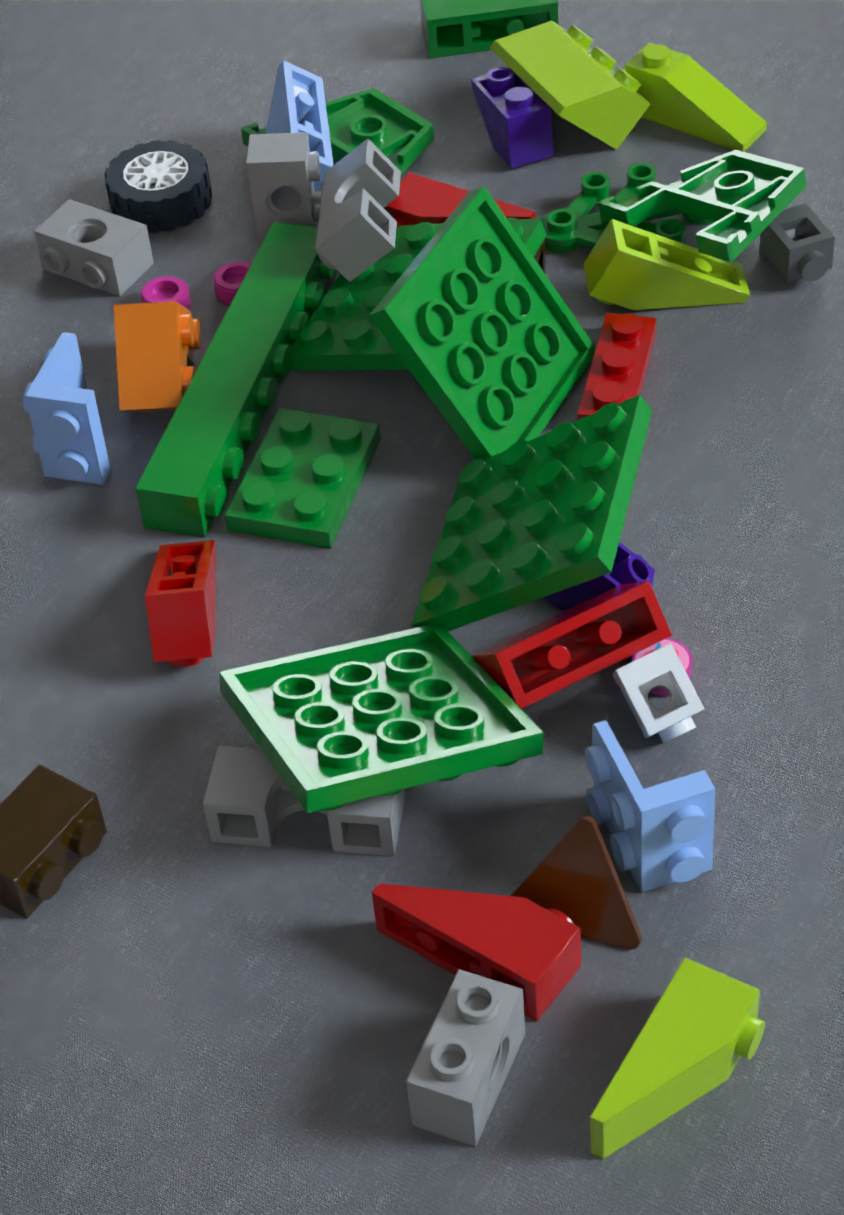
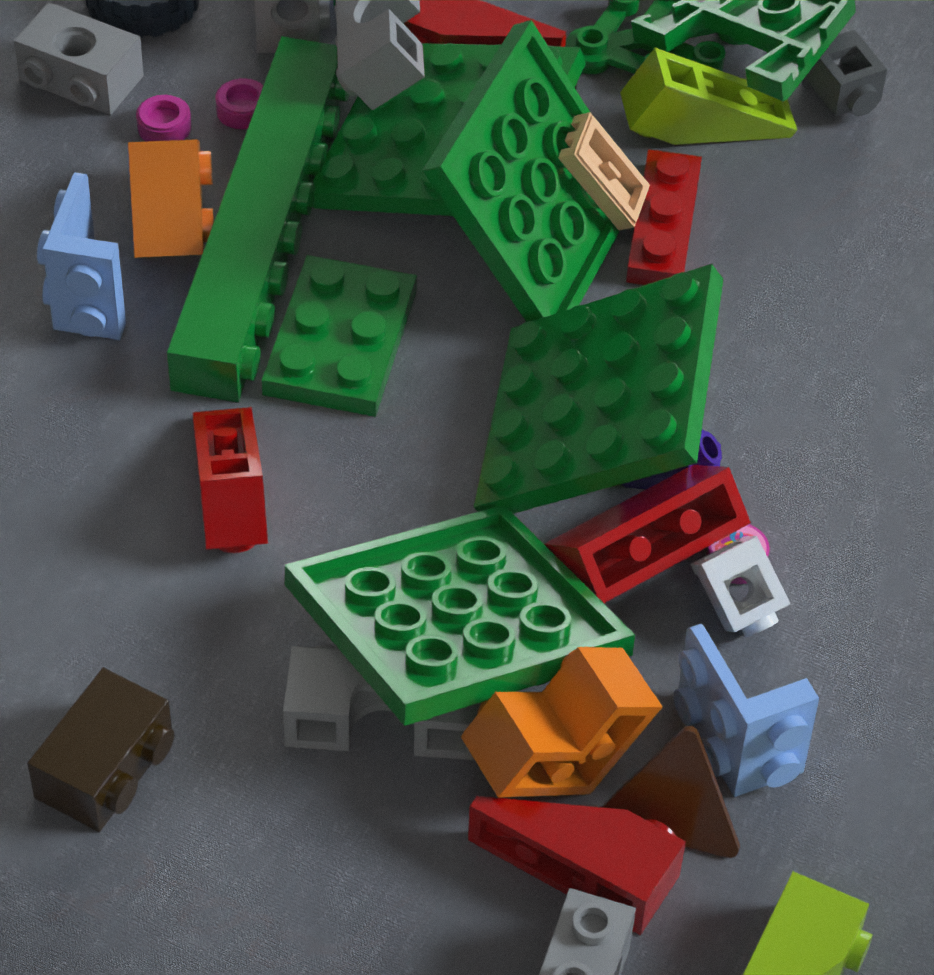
camera: 10 degrees left, 5 degrees up
(472, 827) = (568, 732): none -> orange brick
(557, 327) = (604, 171): none -> light nougat tile

